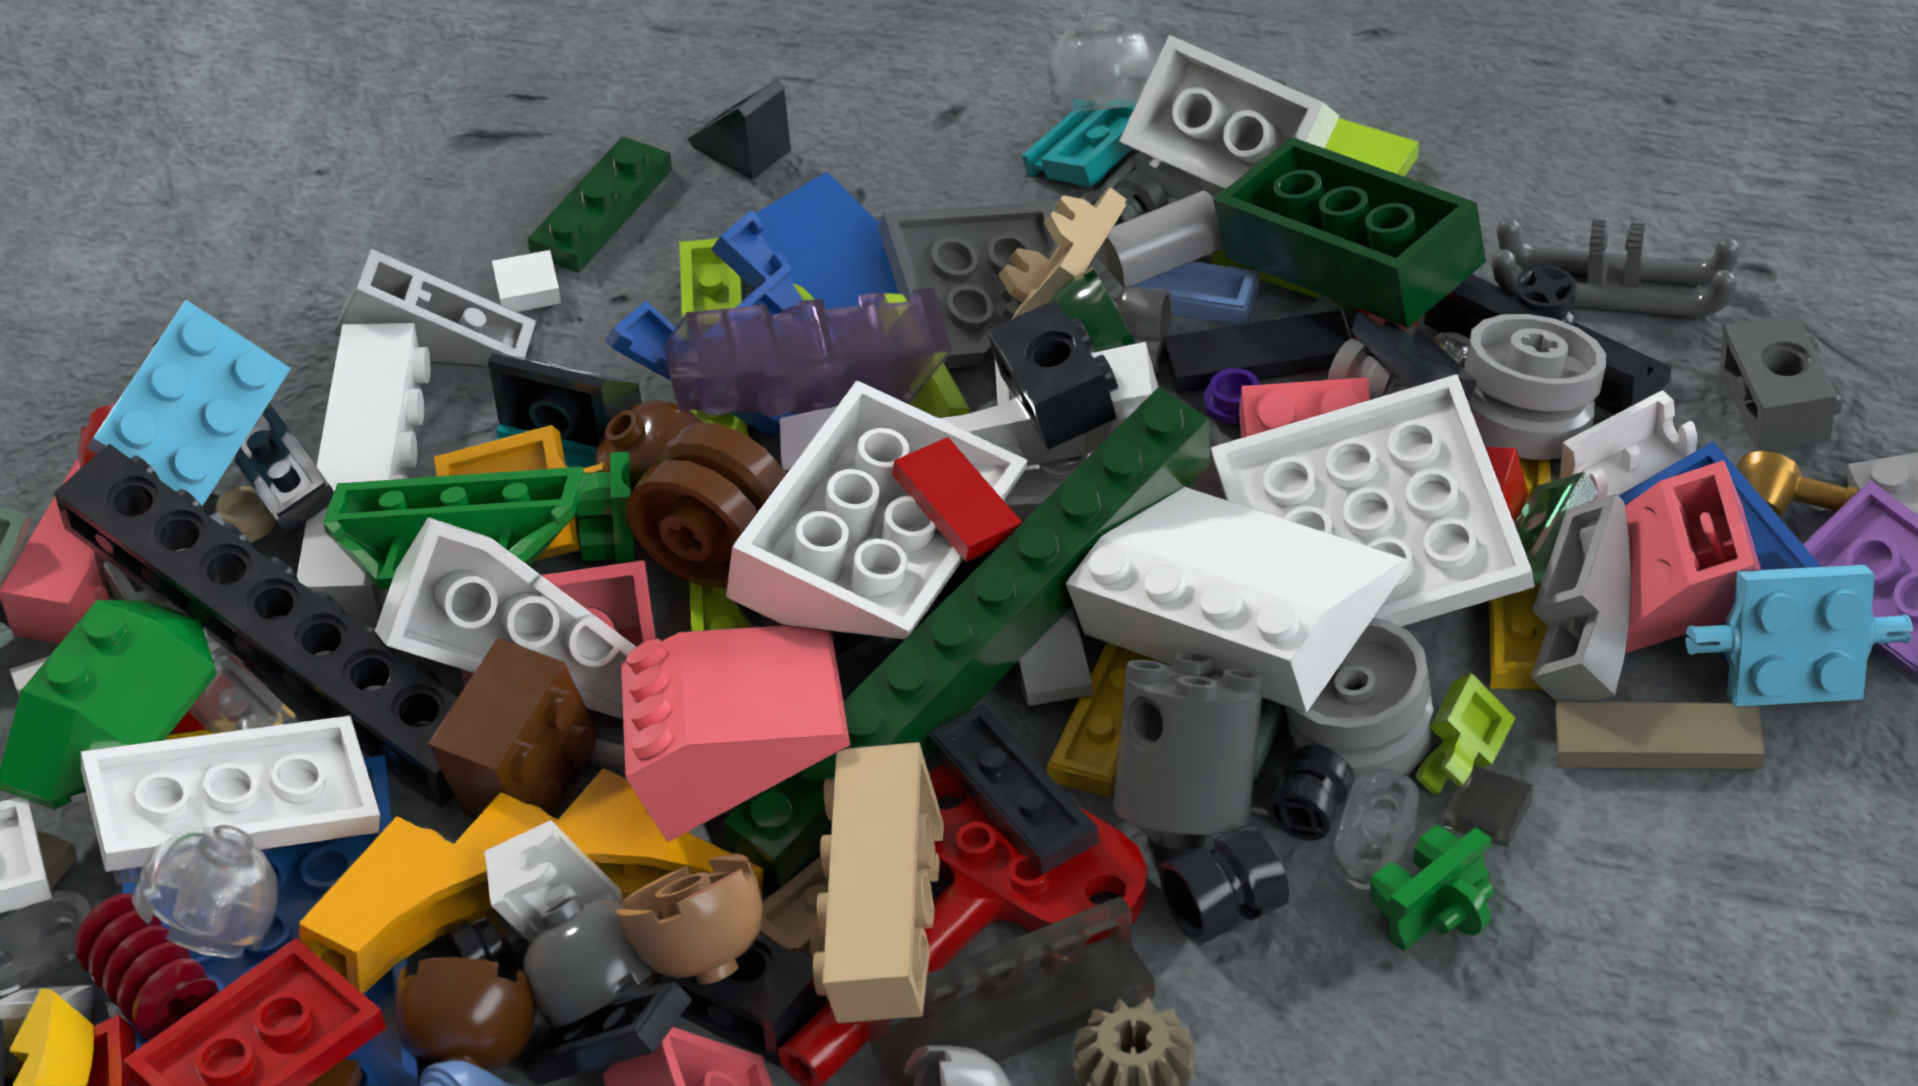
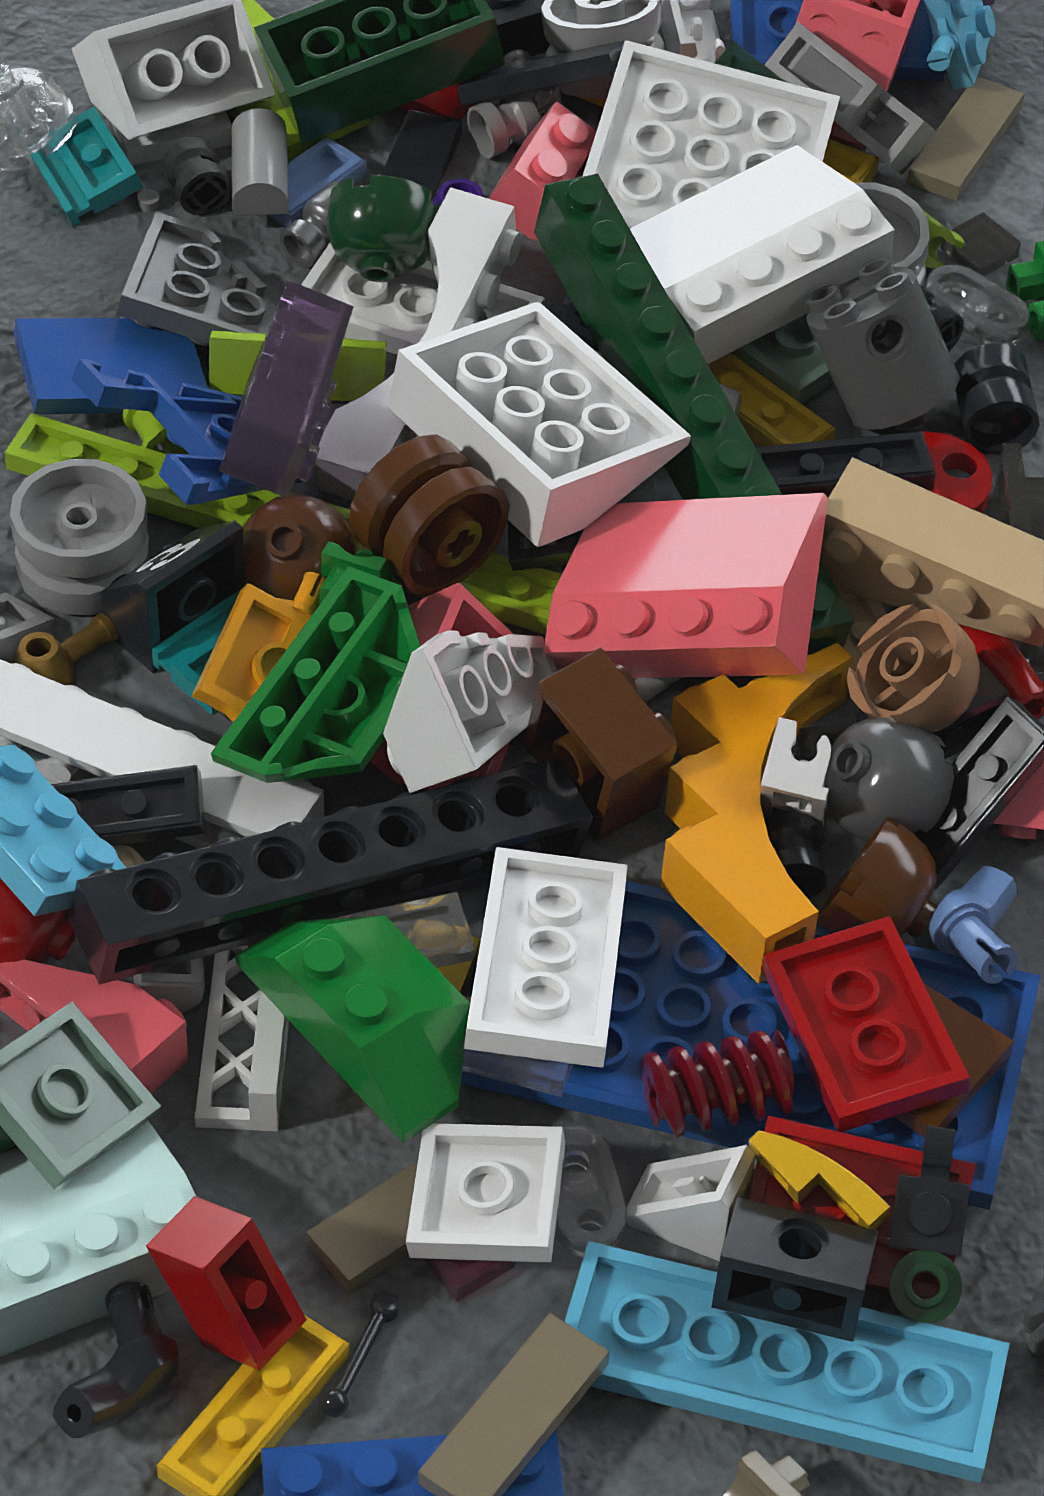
camera: 70 degrees left, 5 degrees up
(210, 890) = (674, 993): clear cylinder -> none
(456, 376) = (54, 660): none -> pearl gold bar
(580, 301) = (77, 533): none -> light grey wheel
(956, 498) = (569, 349): red tile -> none
(1054, 373) = (459, 246): black brick -> none
(1079, 236) = (291, 181): tan piece -> none

